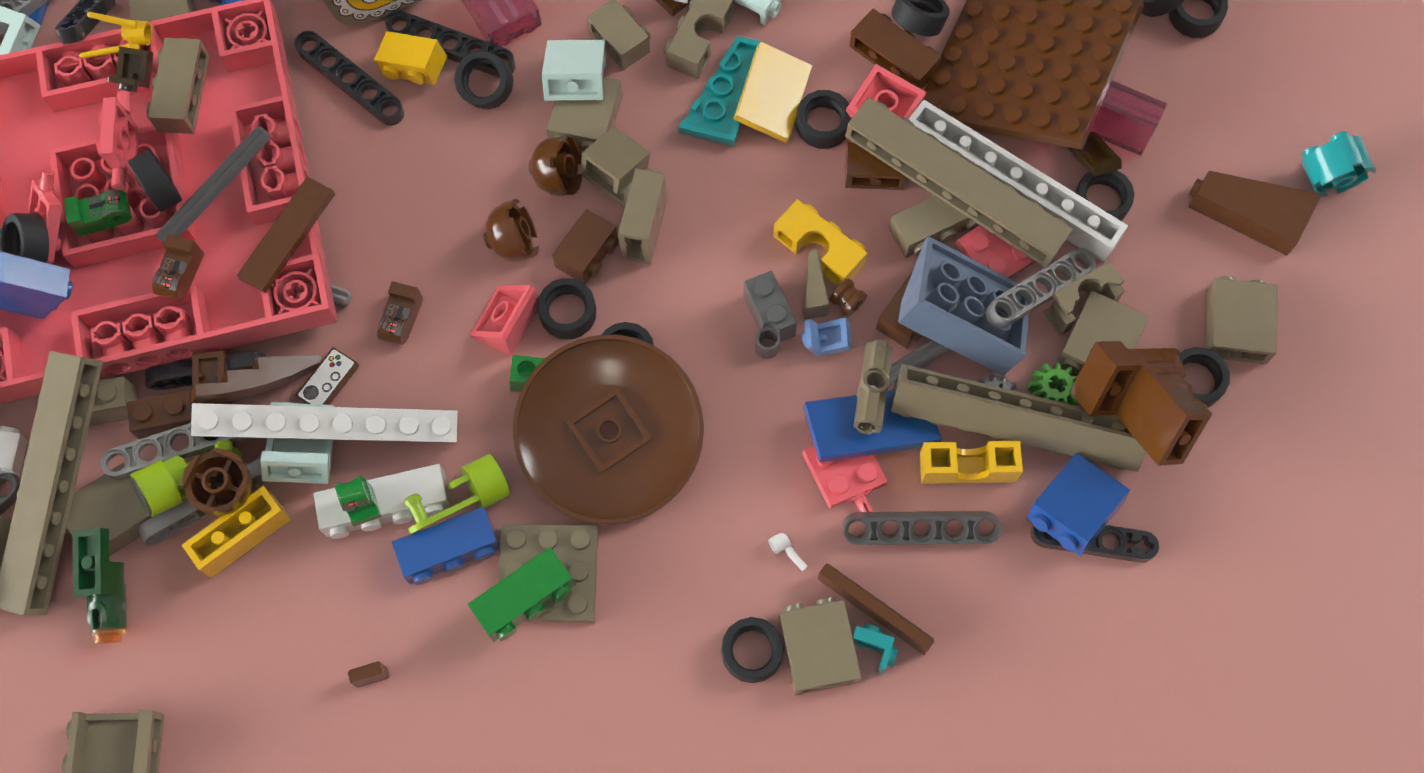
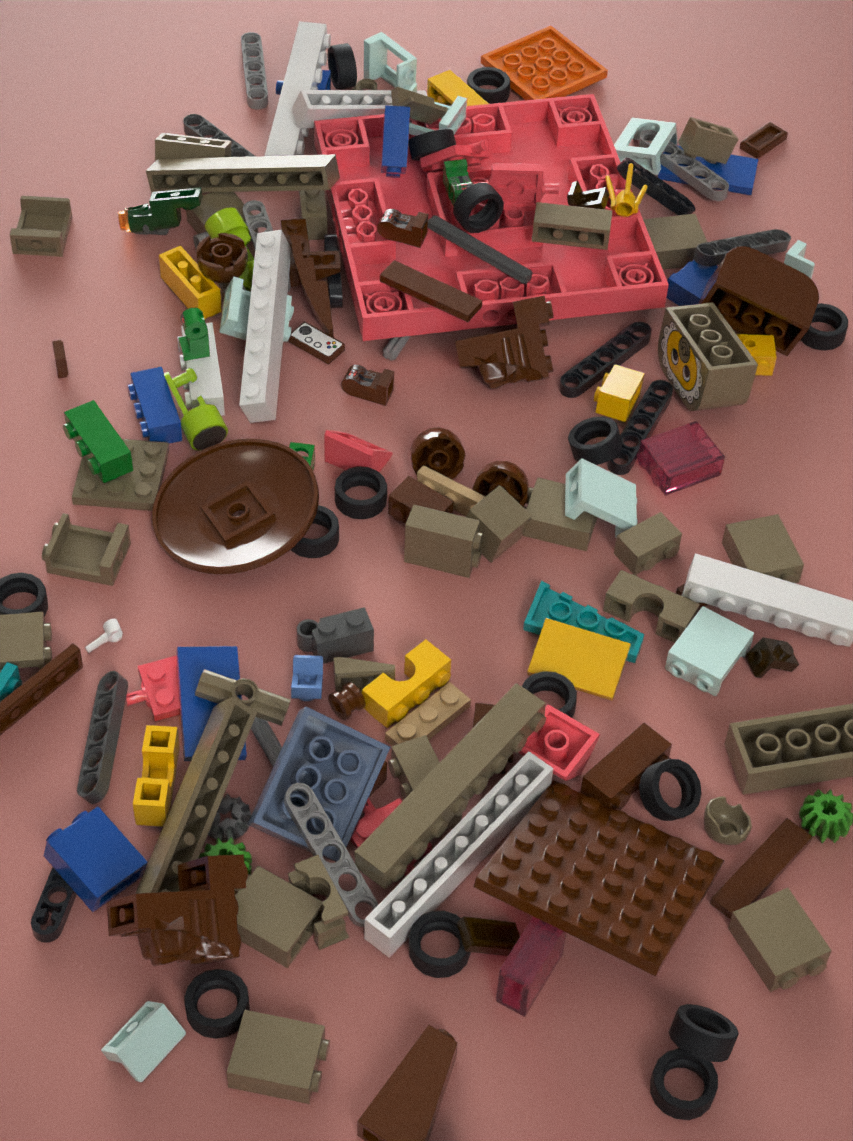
camera: 90 degrees right, 20 degrees down
(359, 152) = (512, 353): none -> reddish brown brick
(567, 214) = (462, 496): none -> tan plate
(672, 588) = (86, 552): none -> dark tan panel
(856, 225) = (430, 716): none -> tan plate
(1243, 439) = (145, 1040): none -> light aqua panel

